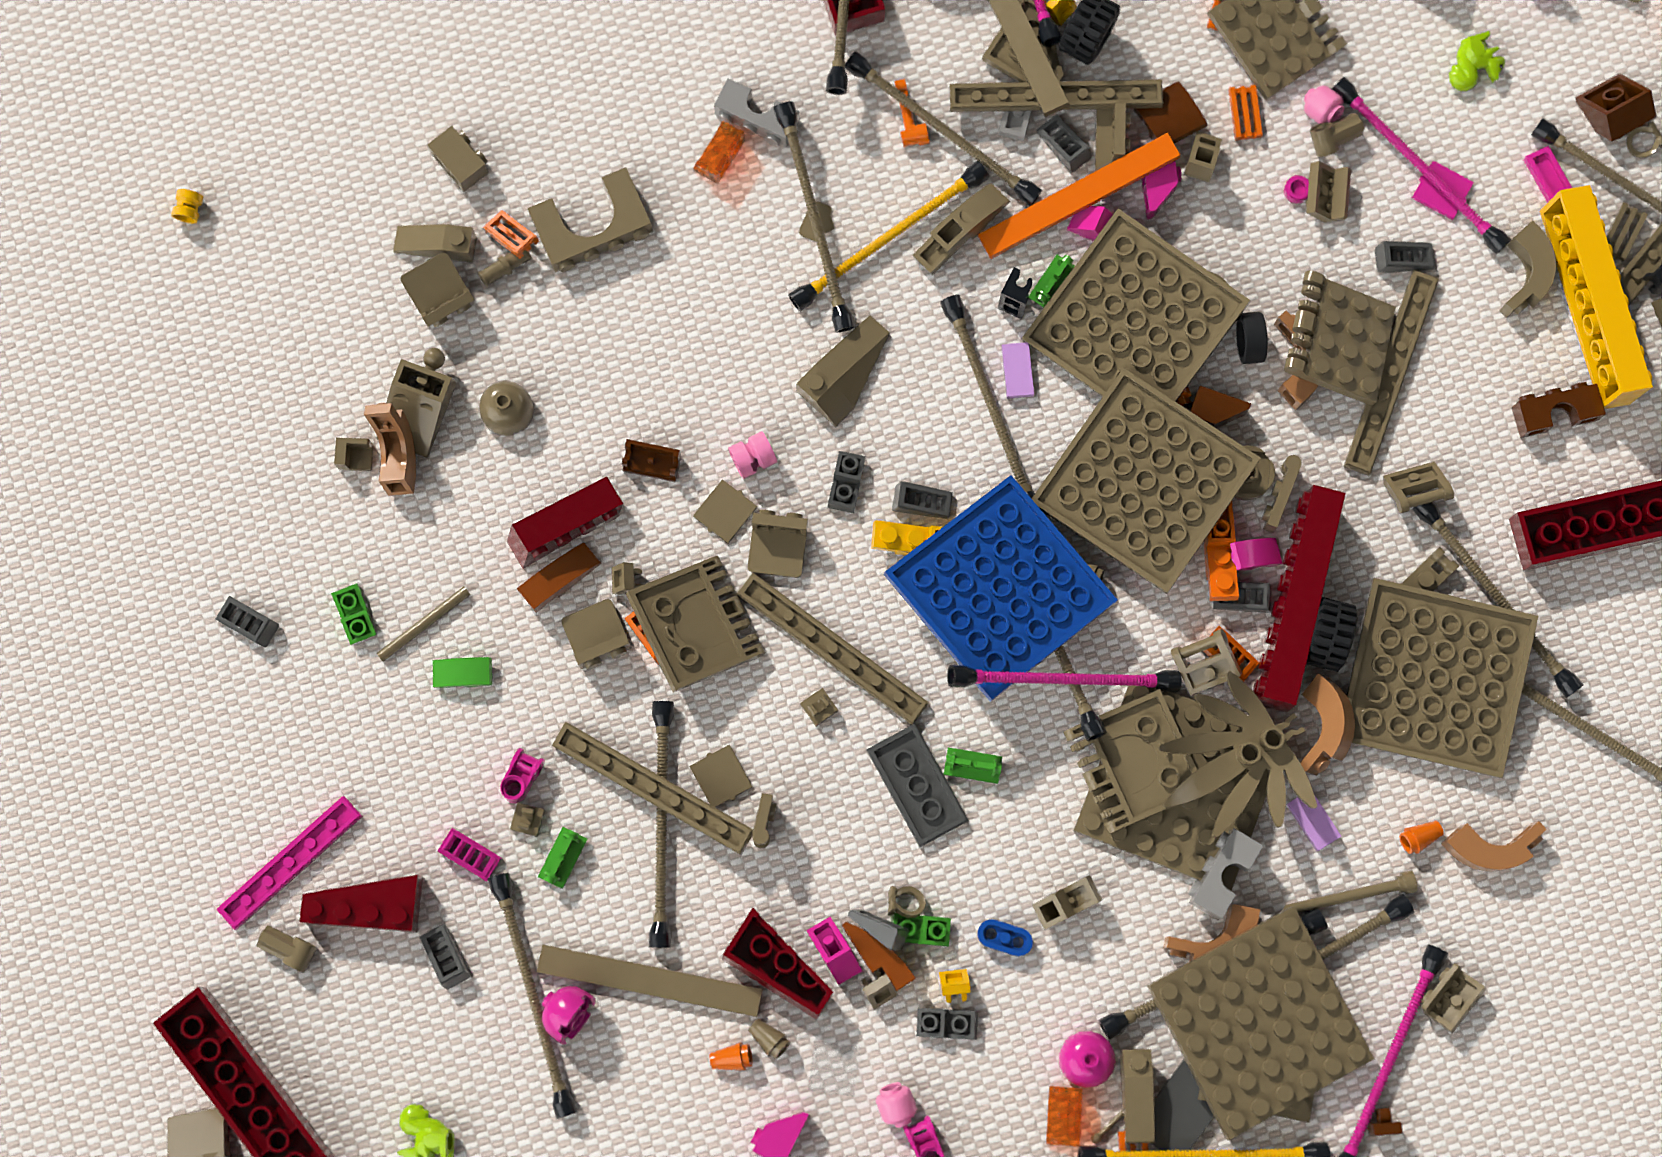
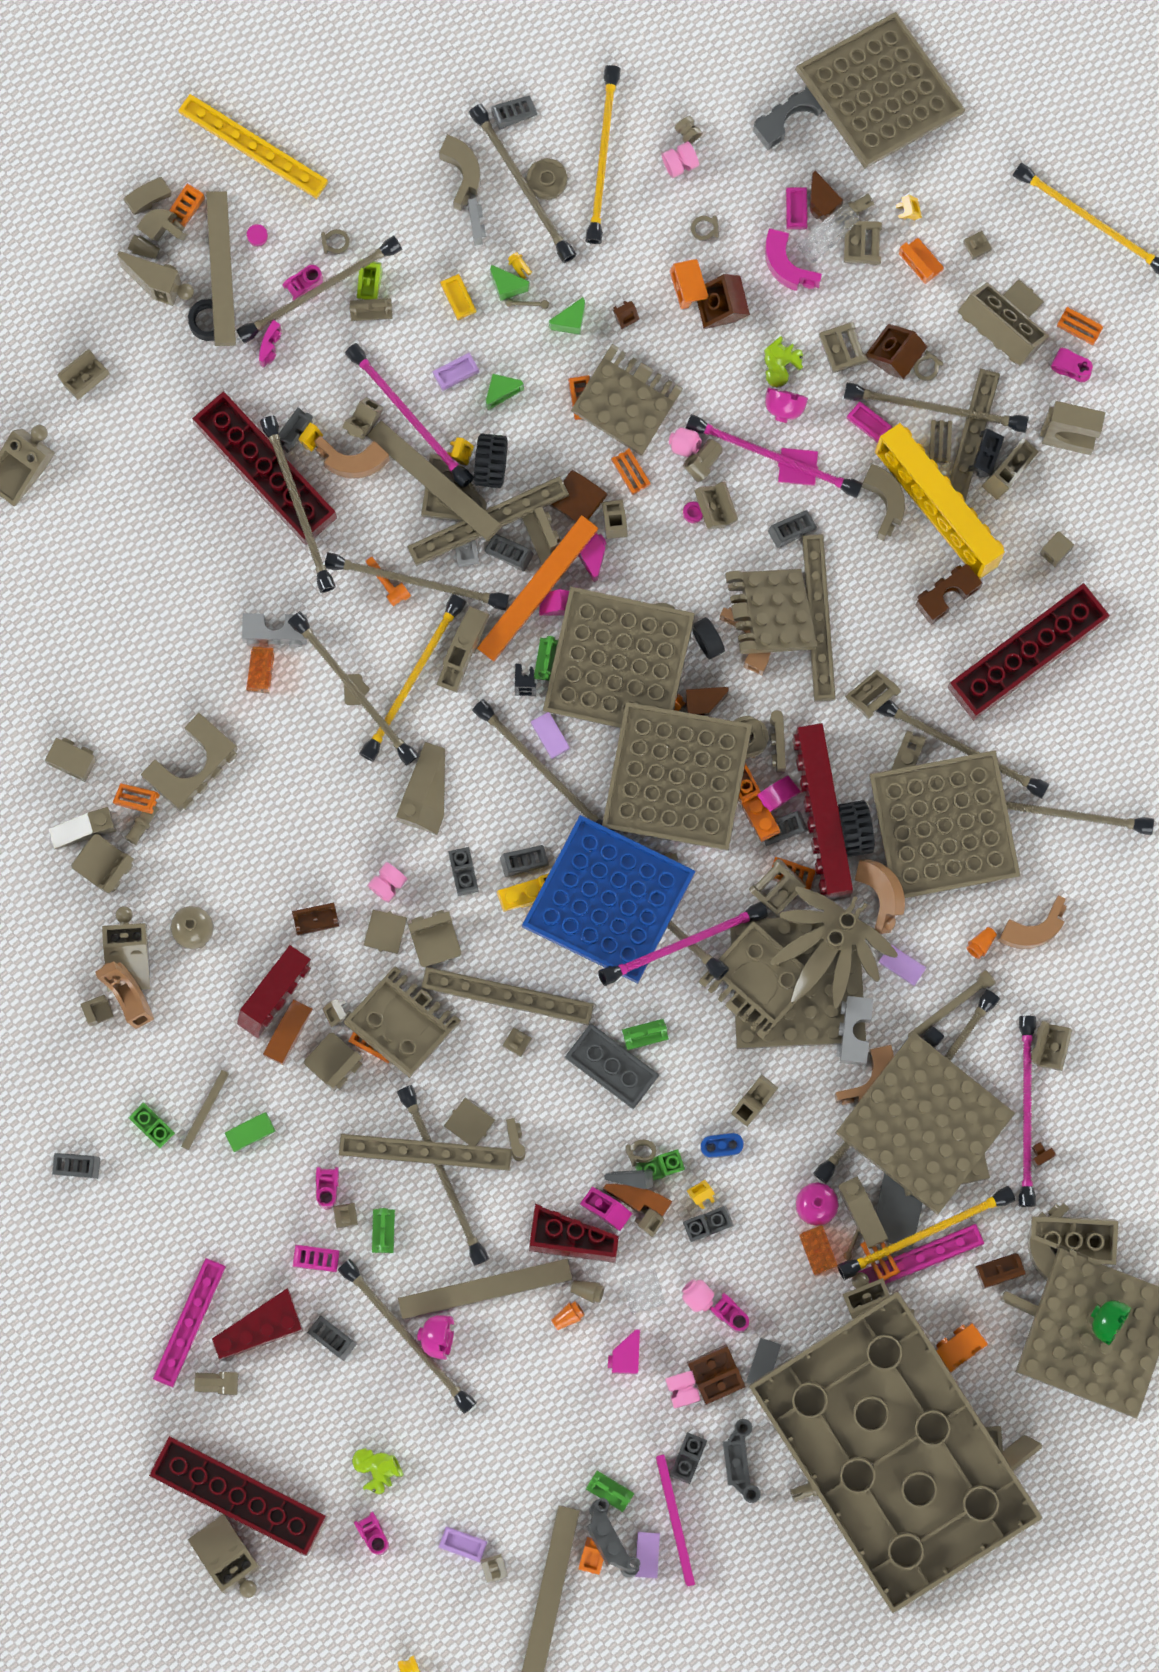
camera: 25 degrees left, 0 degrees up
(1459, 111) = (784, 404): none -> dark pink cylinder
(1546, 76) = (836, 348): none -> dark tan plate

